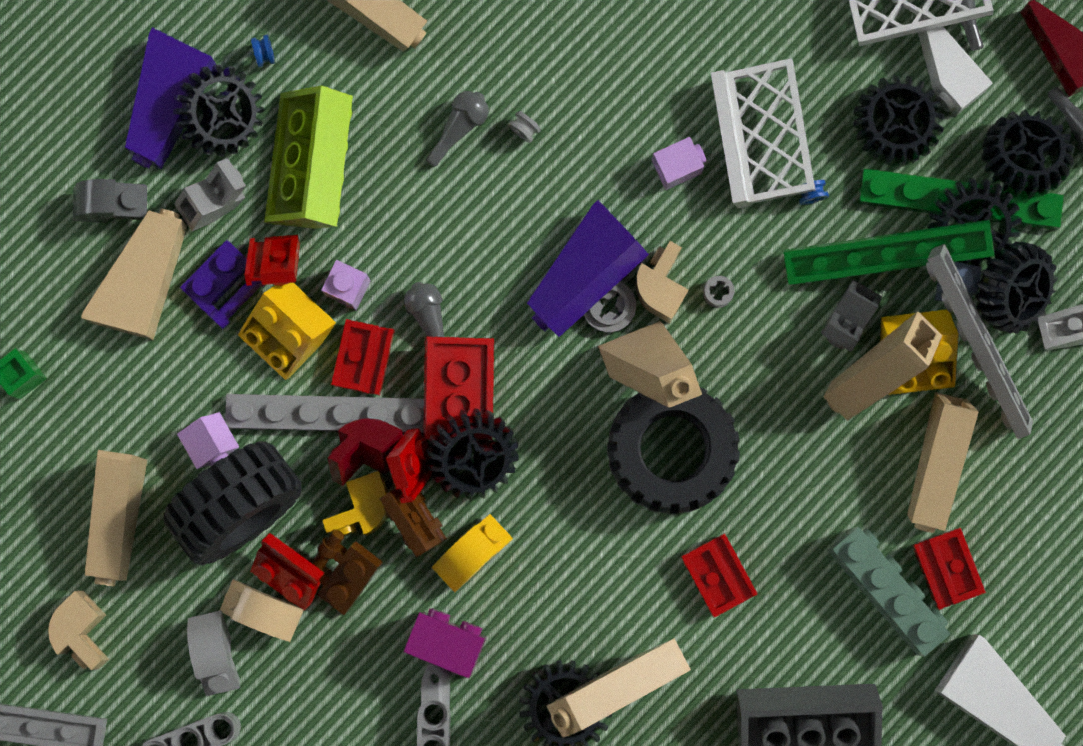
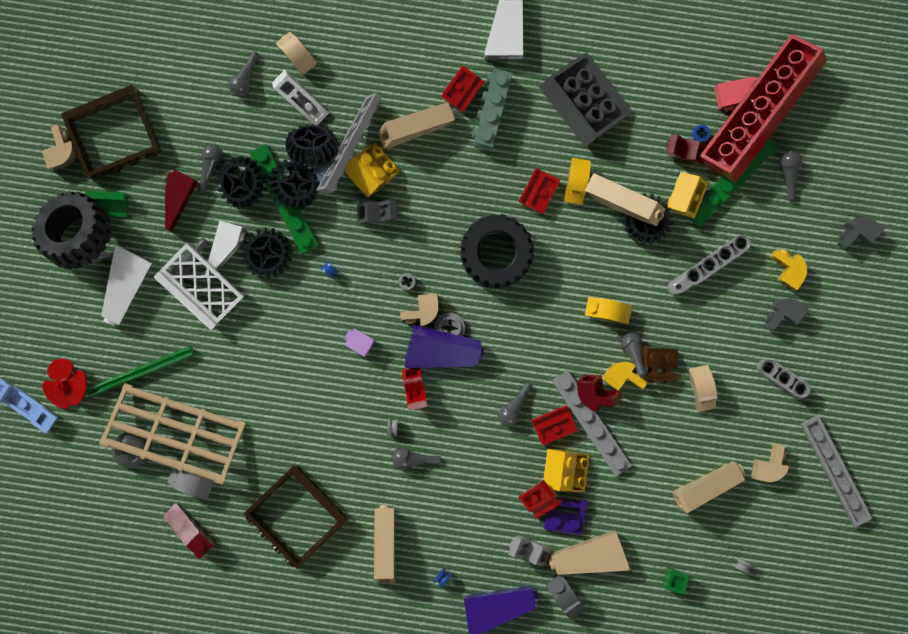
camera: 125 degrees left, 5 degrees up
(207, 440) = (644, 468): lavender brick -> none
(210, 121) = (494, 576): black gear -> none
(211, 653) = (737, 397): light grey brick -> none
(232, 502) = (666, 434): black tyre -> none
(286, 571) = (677, 388): red plate -> none
(309, 158) = (478, 518): lime slope -> none
(346, 285) = (526, 457): lavender brick -> none
(386, 547) = (632, 345): none -> dark grey piece
(408, 464) = (590, 366): red plate -> none
(414, 522) = (613, 347): reddish brown plate -> none
(446, 643) = (658, 292): magenta brick -> none
(457, 379) = (538, 369): red plate -> none
(498, 451) = (572, 350): black gear -> none
(556, 194) = (414, 388): none -> red brick
(651, 365) = (467, 287): tan slope -> none
(695, 641) = (577, 181): none -> yellow brick
(733, 133) = (332, 321): white fence -> none
(884, 367) = (393, 178): tan slope -> none
(886, 252) = (336, 215): green plate -> none

